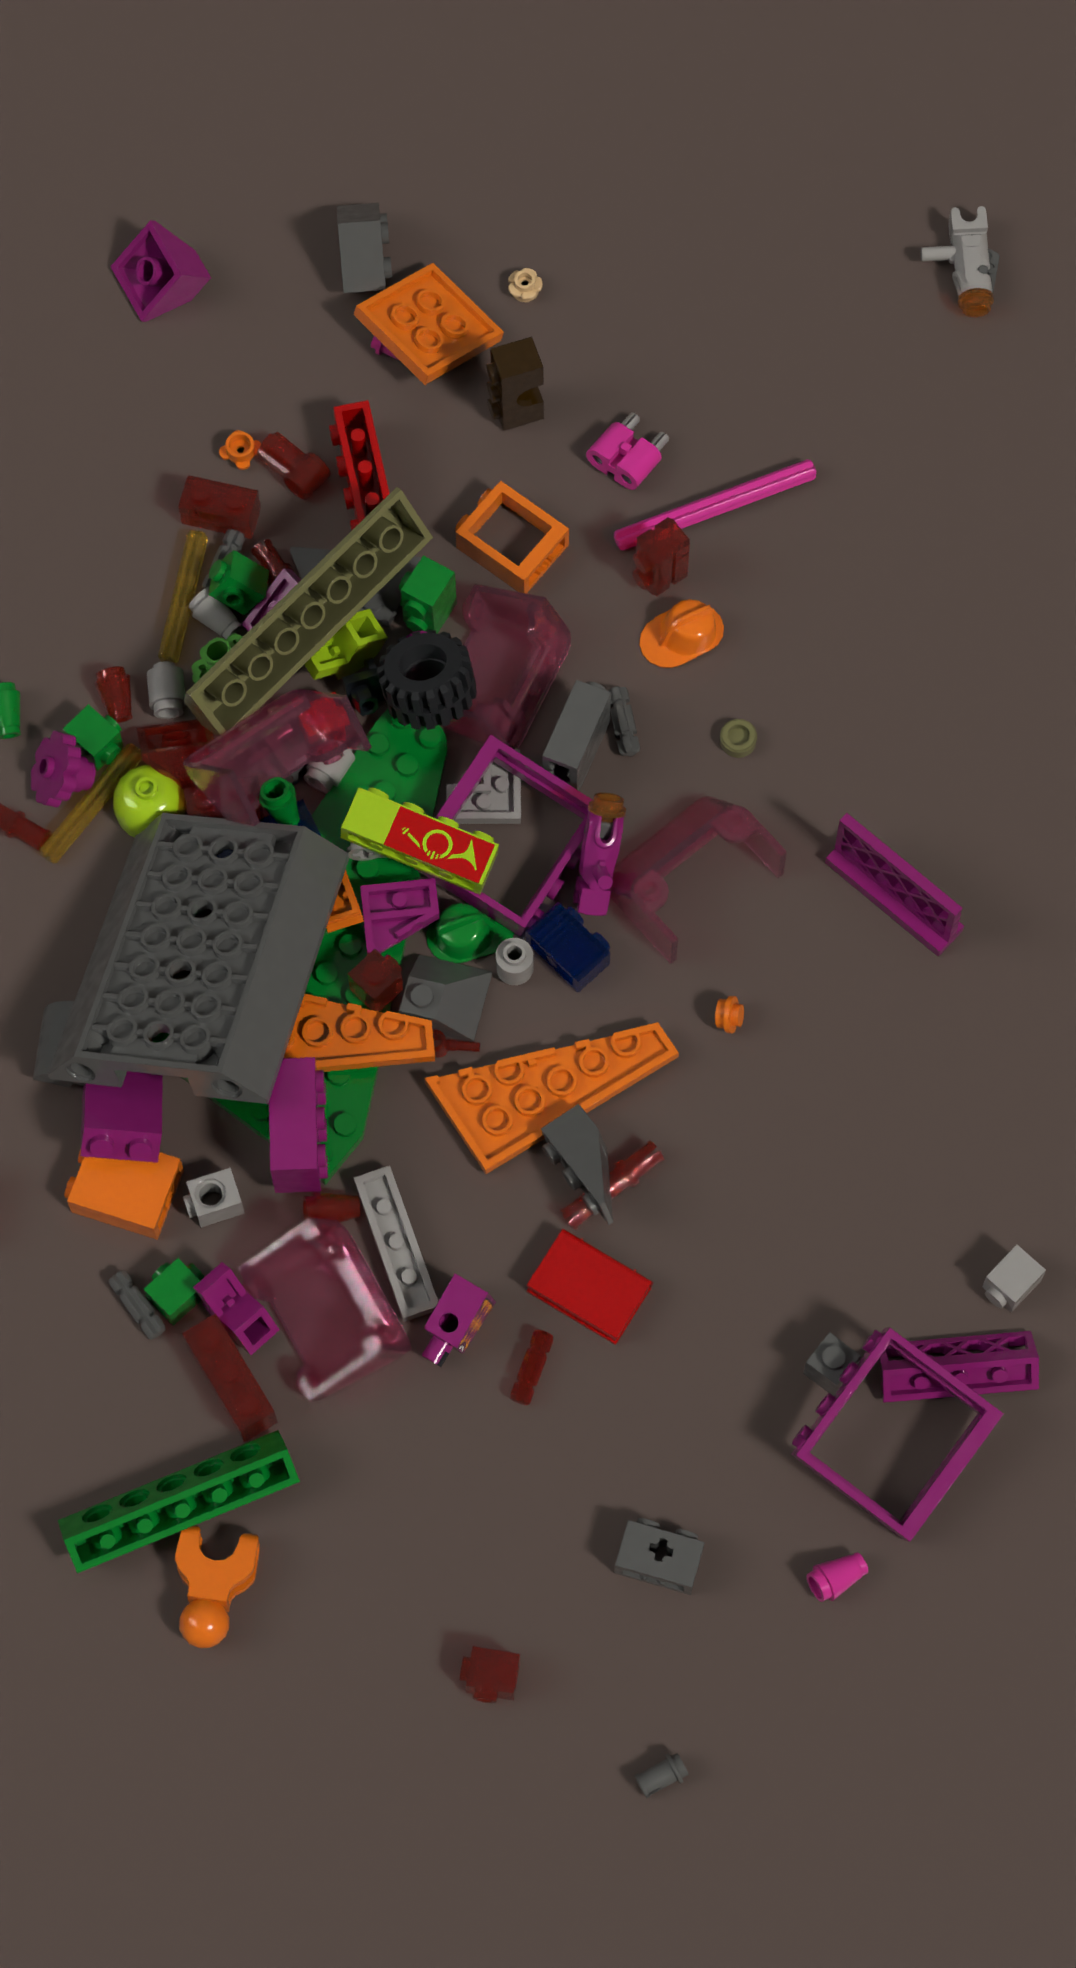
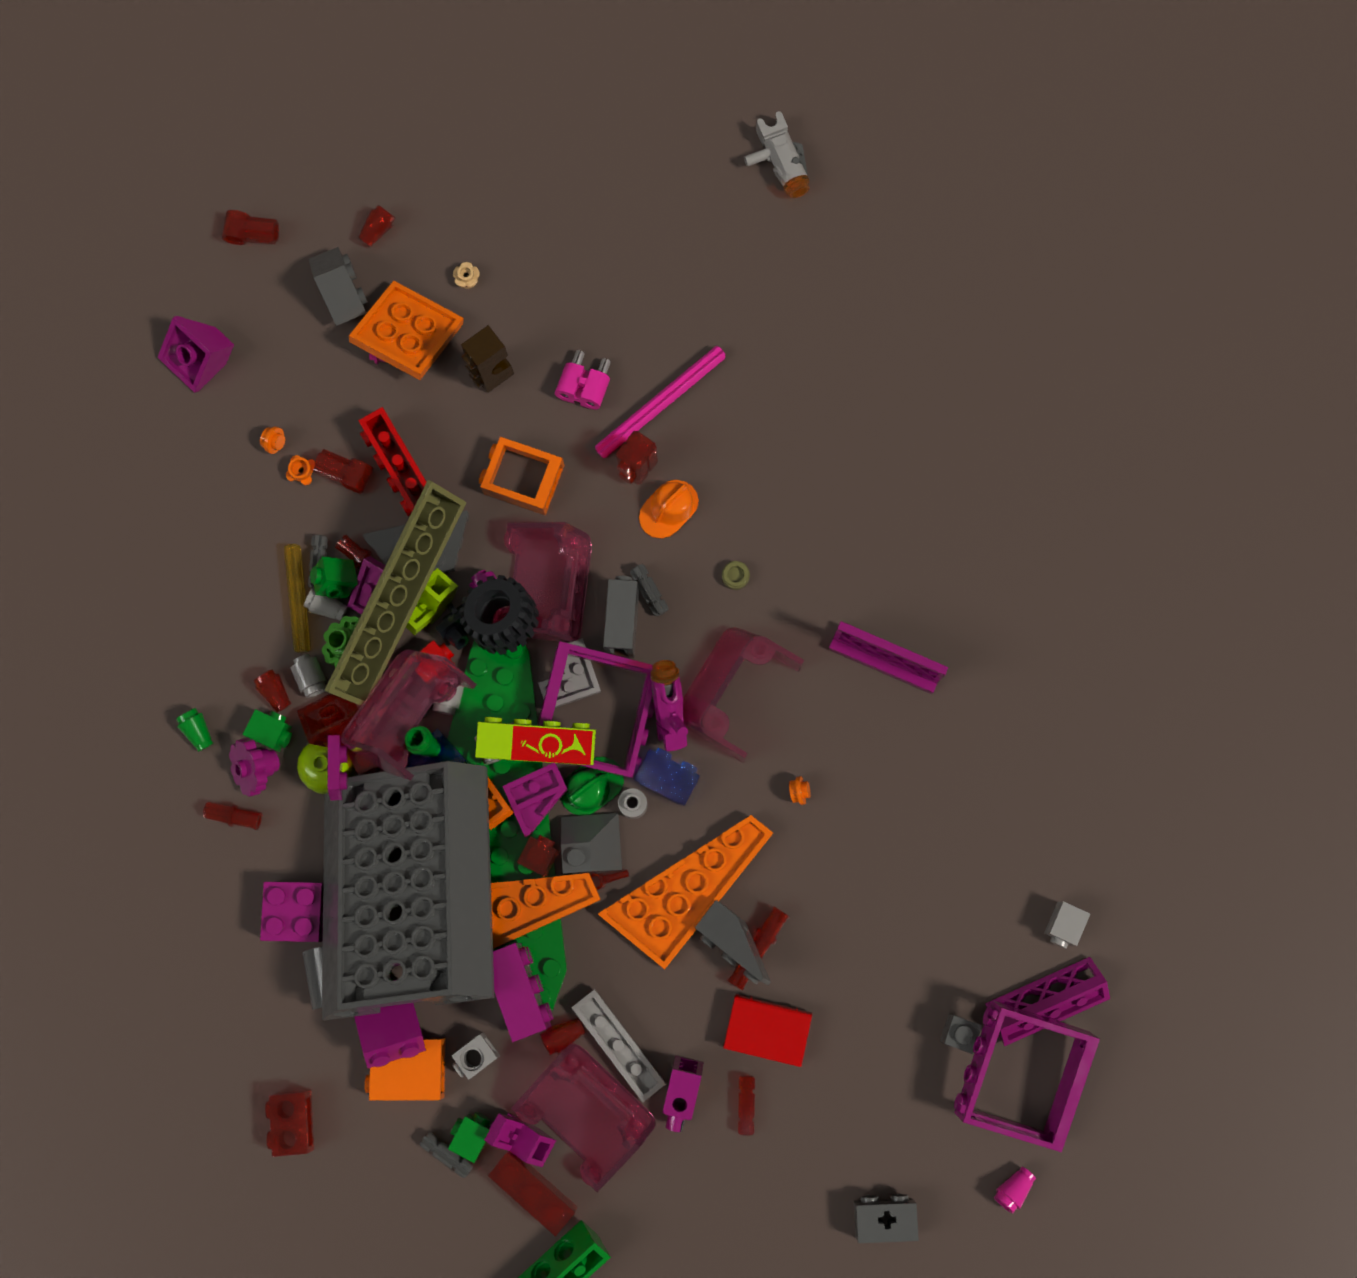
camera: 15 degrees left, 10 degrees up
(49, 955) = (292, 912): none -> magenta brick
(90, 804) = (282, 782): clear yellow axle -> none
(162, 806) = (336, 778): none -> magenta plate
(218, 402) = (272, 439): none -> orange plate
(219, 506) = (300, 521): clear red brick -> none
(268, 147) = (242, 228): none -> clear red piece
(427, 595) = (476, 544): green brick -> none
(433, 193) = (376, 225): none -> clear red cone

